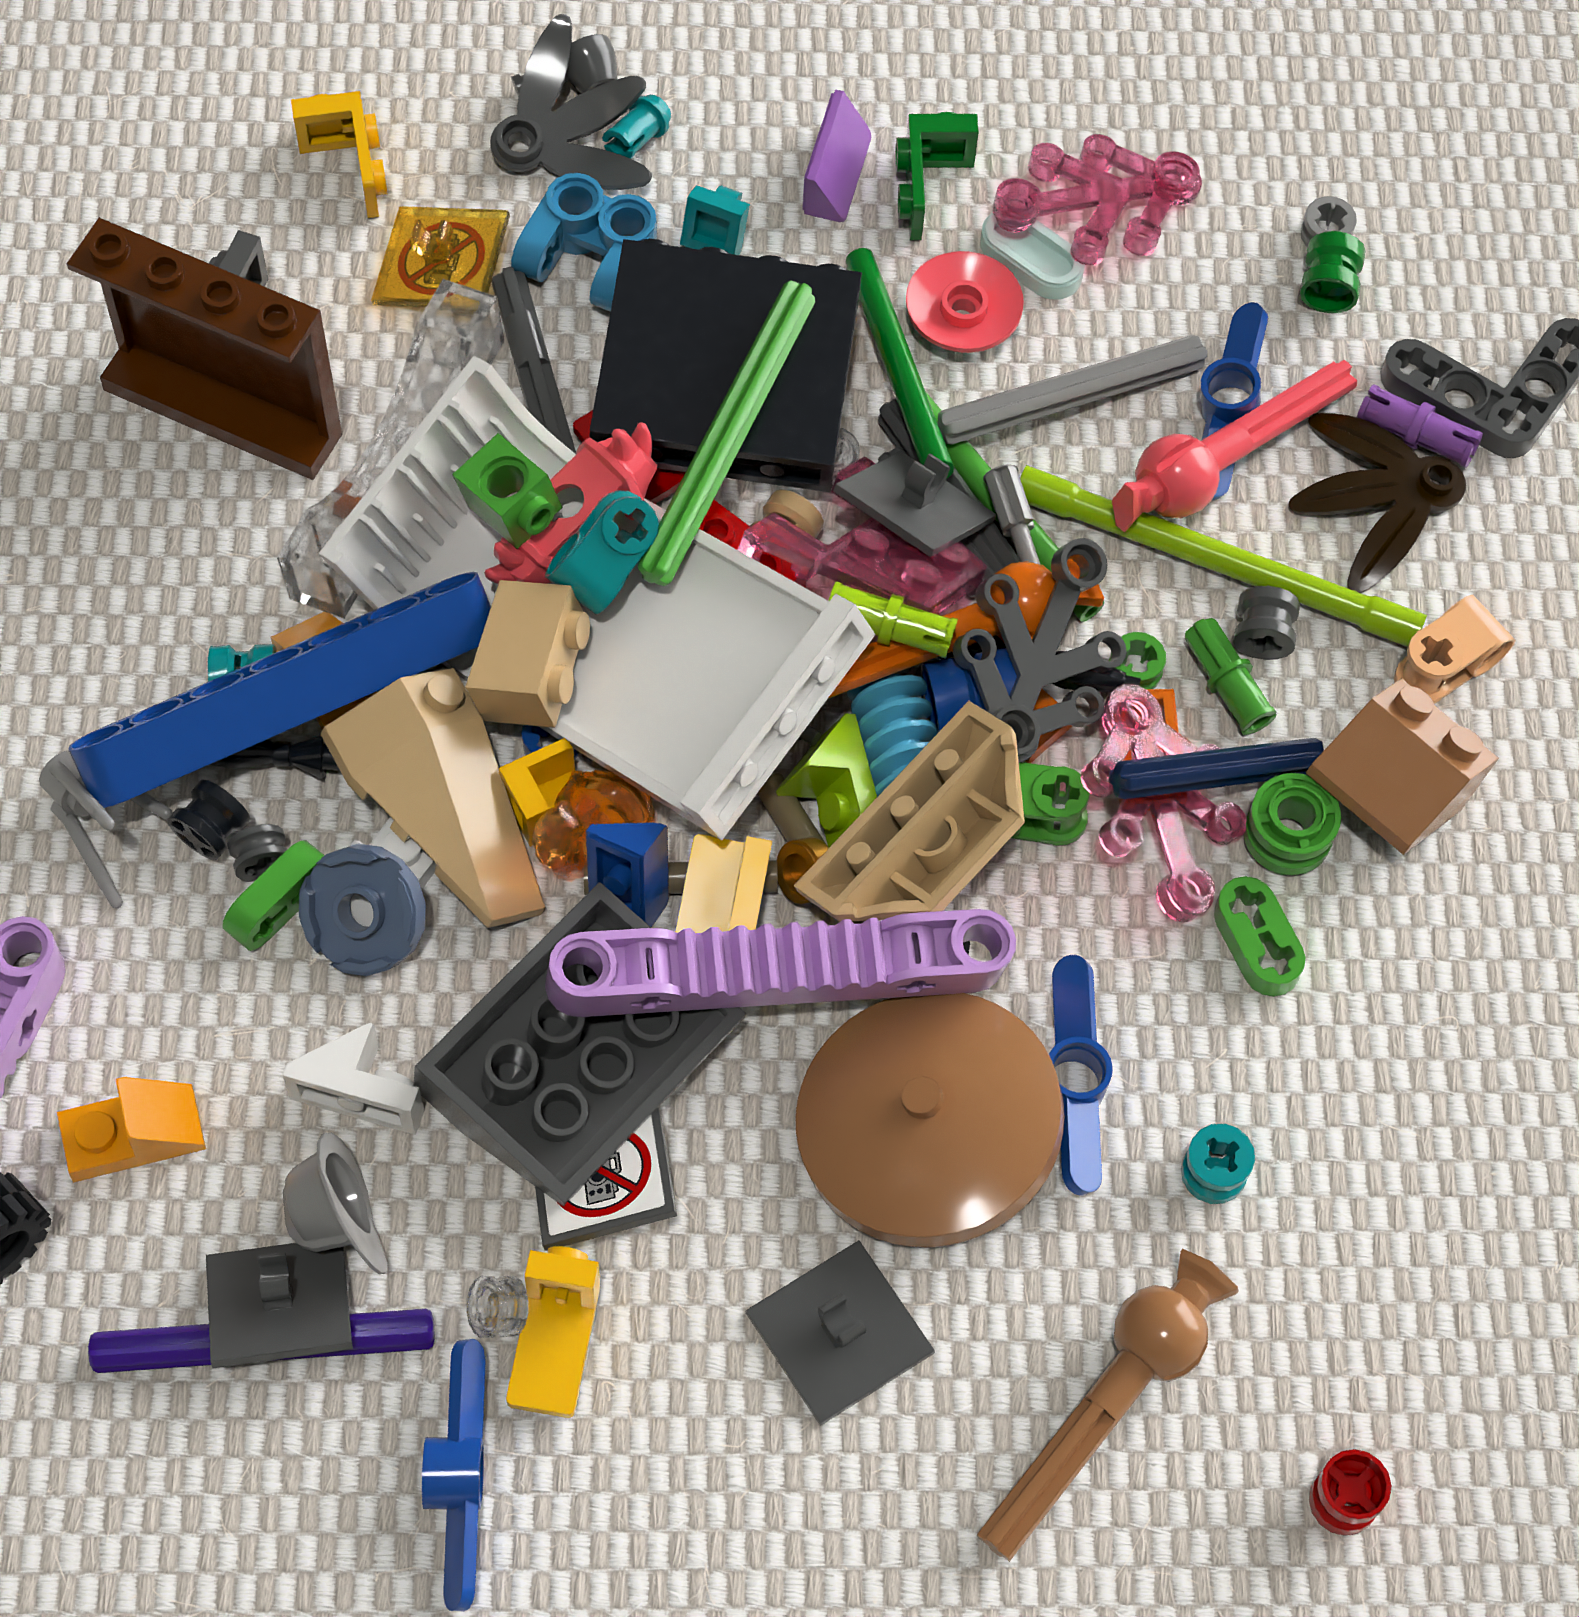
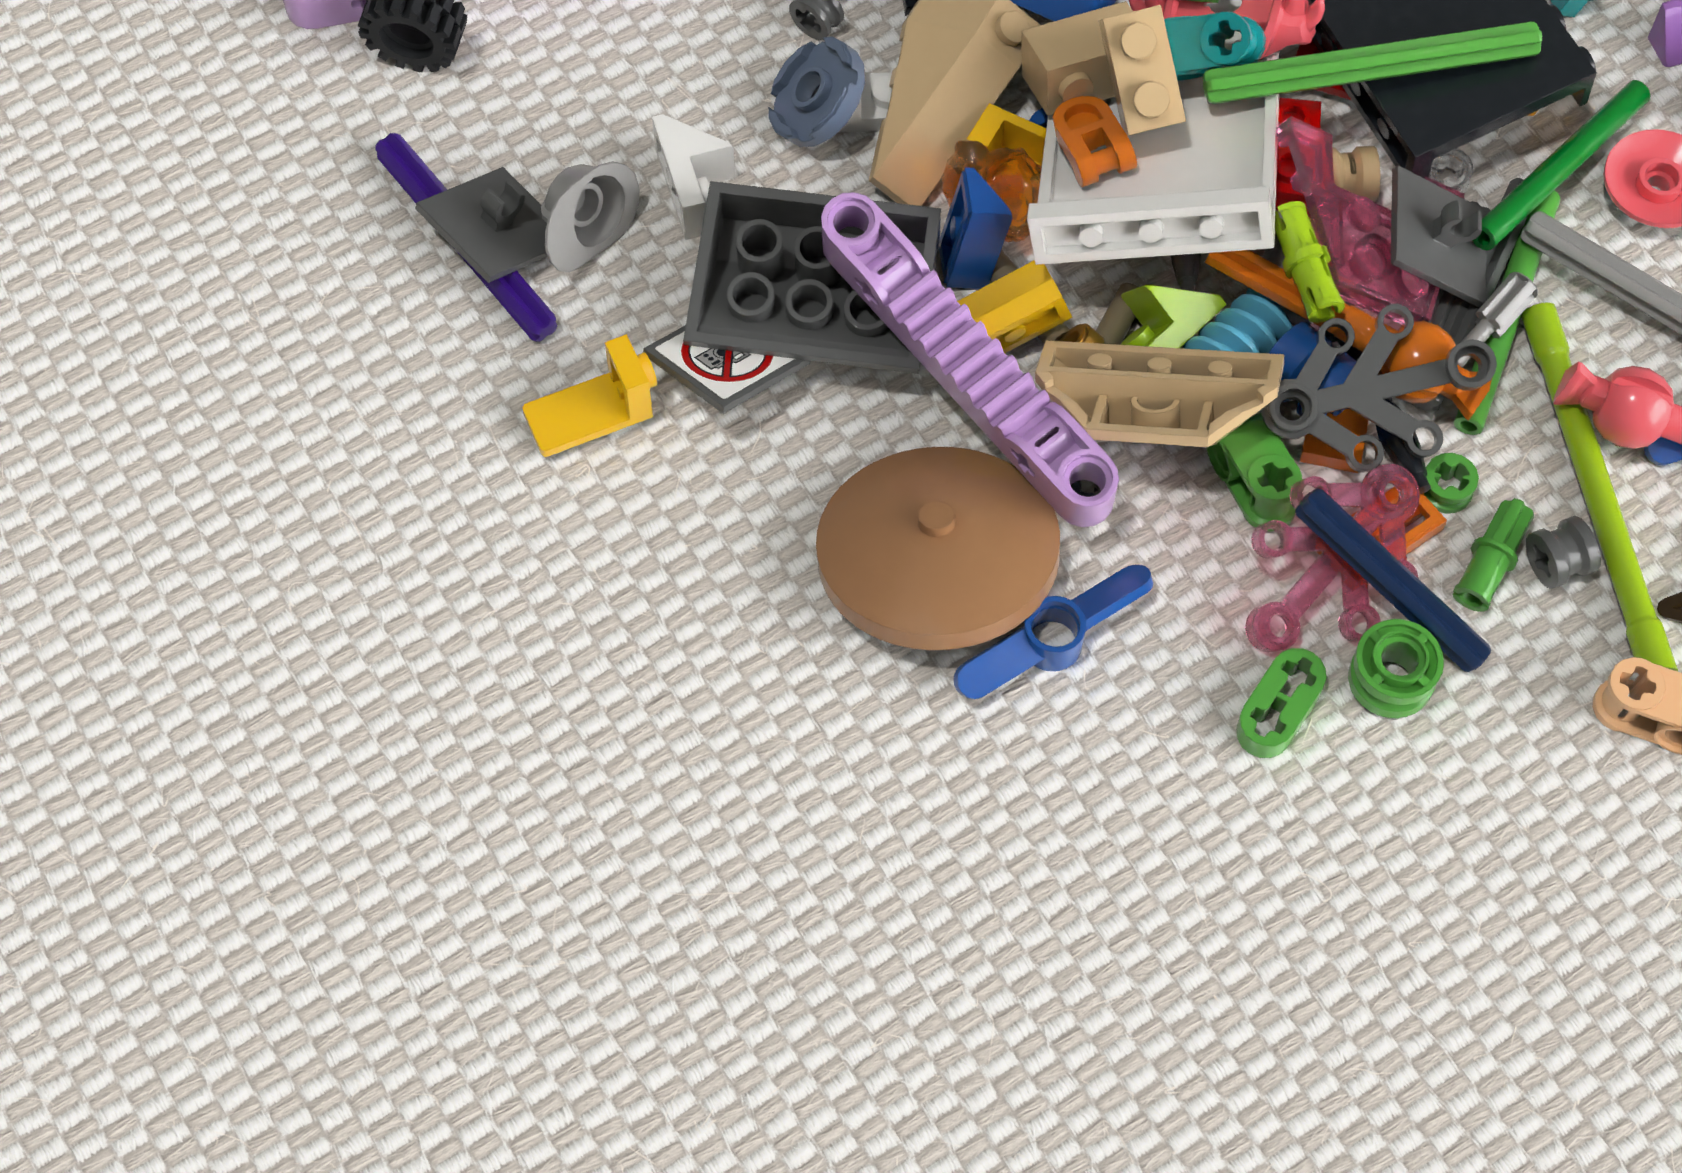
camera: 60 degrees right, 0 degrees up
(137, 1128) = (561, 67): light orange slope -> none
(271, 897) = (773, 37): bright green beam -> none
(456, 1472) = (455, 403): blue piece -> none
(497, 1306) = (584, 356): clear bush -> none
(605, 699) = (1084, 126): none -> orange plate
(607, 615) = (1142, 70): none -> tan brick
(839, 1332) = (733, 594): dark grey piece -> none
(1158, 1339) = (876, 803): medium nougat piece -> none
(1209, 1176) = (1055, 789): teal wheel -> none
(1359, 1481) = (853, 1003): red wheel -> none
(1403, 766) = (1509, 716): medium nougat slope -> none

